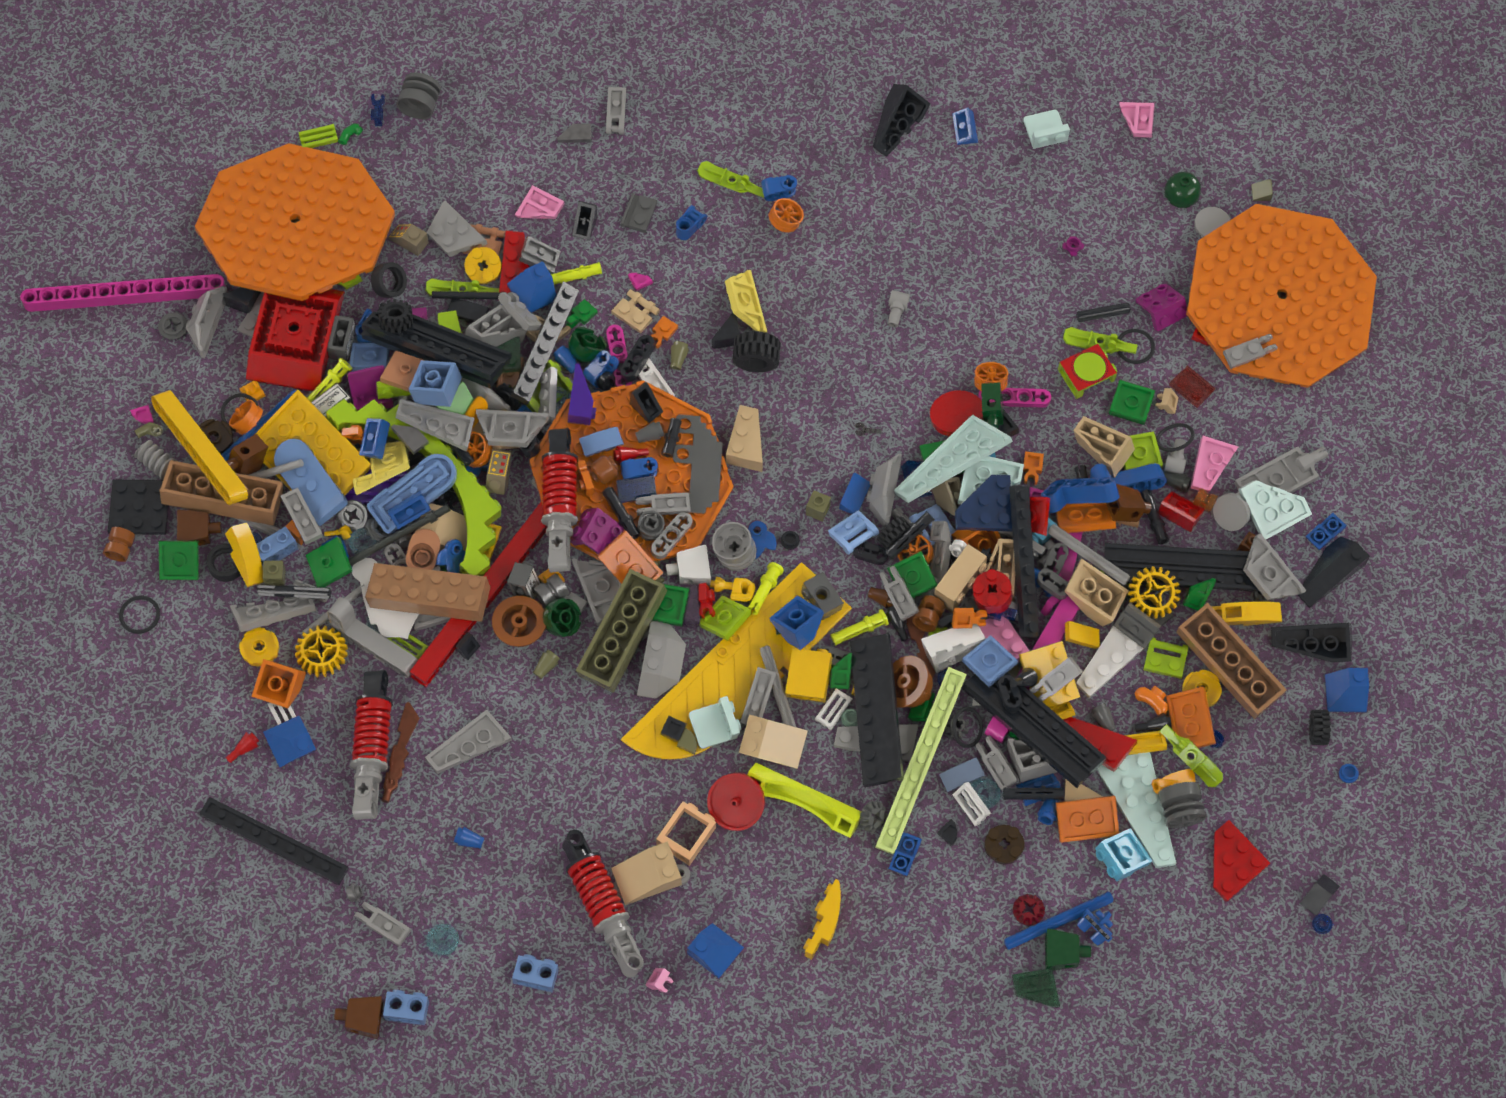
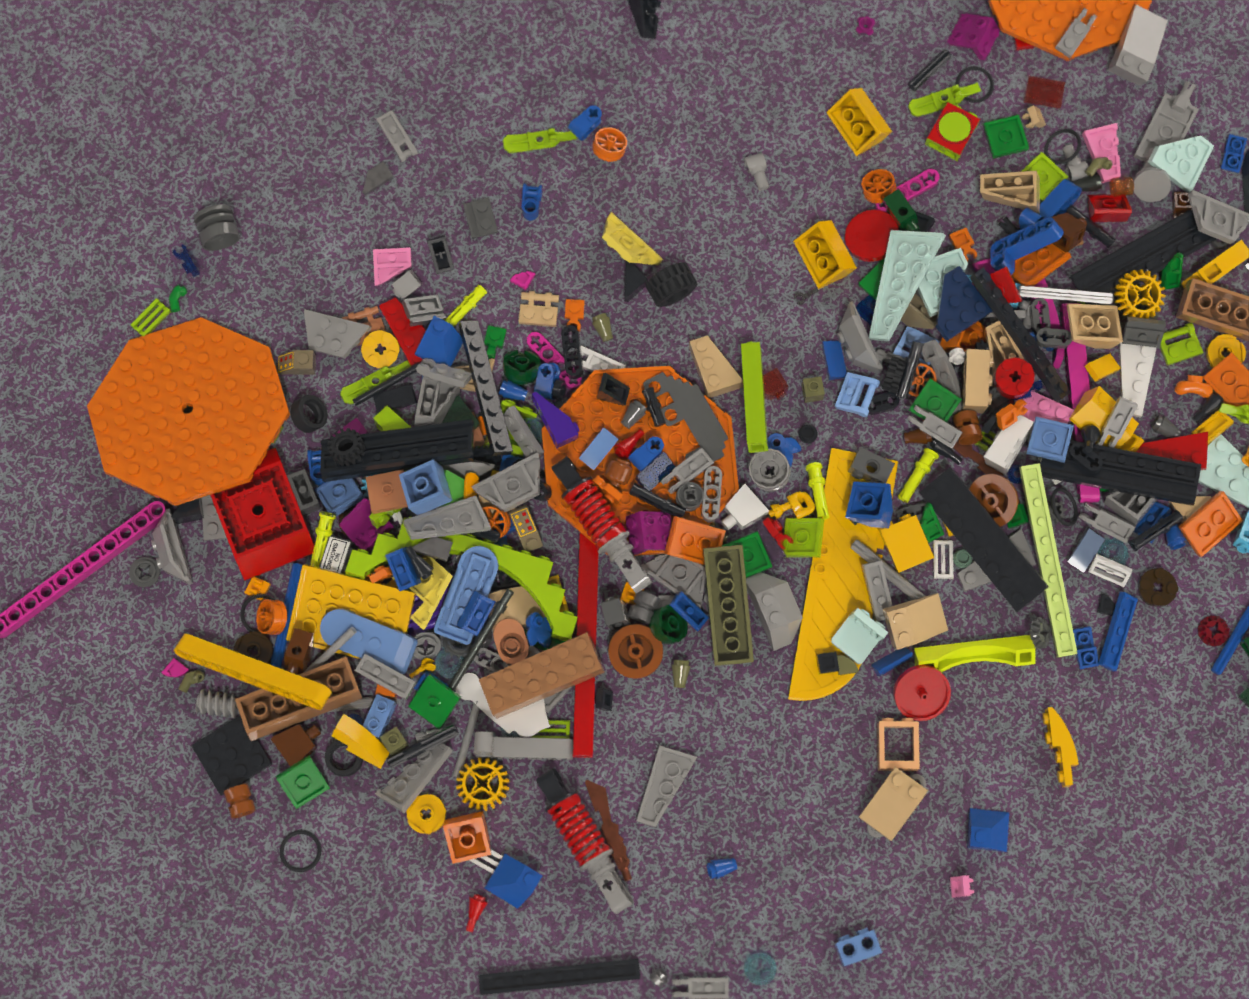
camera: 30 degrees left, 10 degrees up
(389, 445) = (420, 566): none -> black cone
(540, 227) = (406, 285): none -> light grey brick
(586, 616) = (689, 611): none -> blue slope
(601, 901) = (882, 857): piece -> none
(730, 764) = (891, 661): none -> blue slope
(760, 478) = (754, 397): none -> lime brick
(782, 481) = (774, 385): none -> clear red slope
(907, 405) = (824, 254): none -> yellow slope
(943, 858) = (1118, 631): none -> blue tile
(1012, 317) = (858, 121): none -> yellow slope
(1194, 467) = (1098, 163): none -> olive arm
(1300, 393) = (1138, 46): none -> light grey slope

